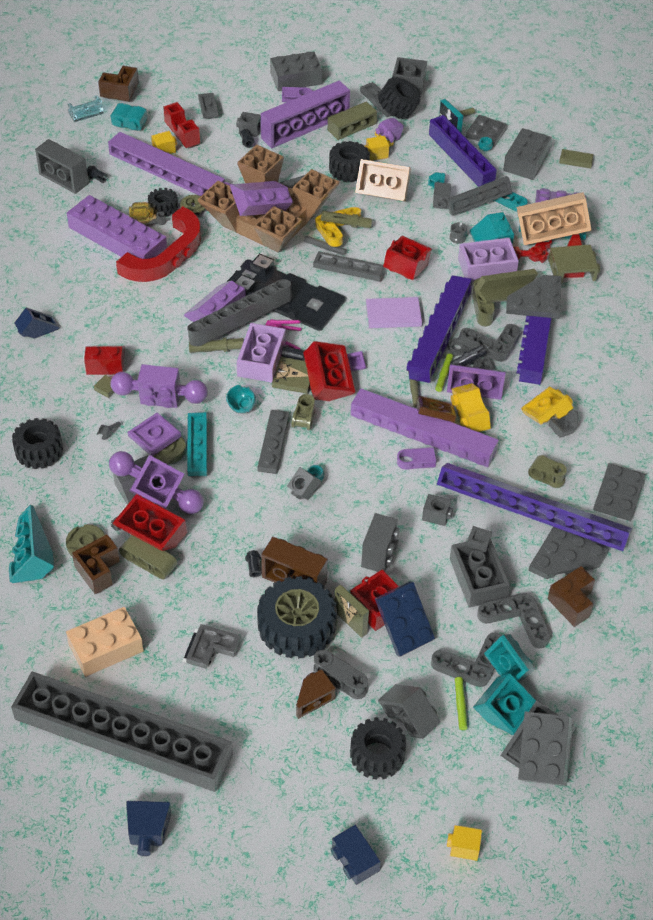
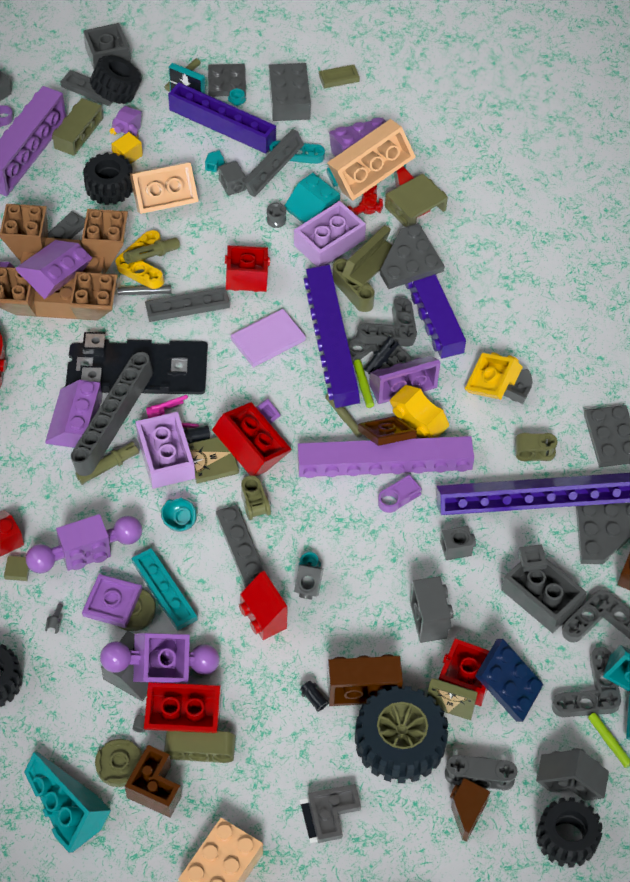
camera: 30 degrees left, 5 degrees up
(256, 487) = (263, 607): none -> red slope

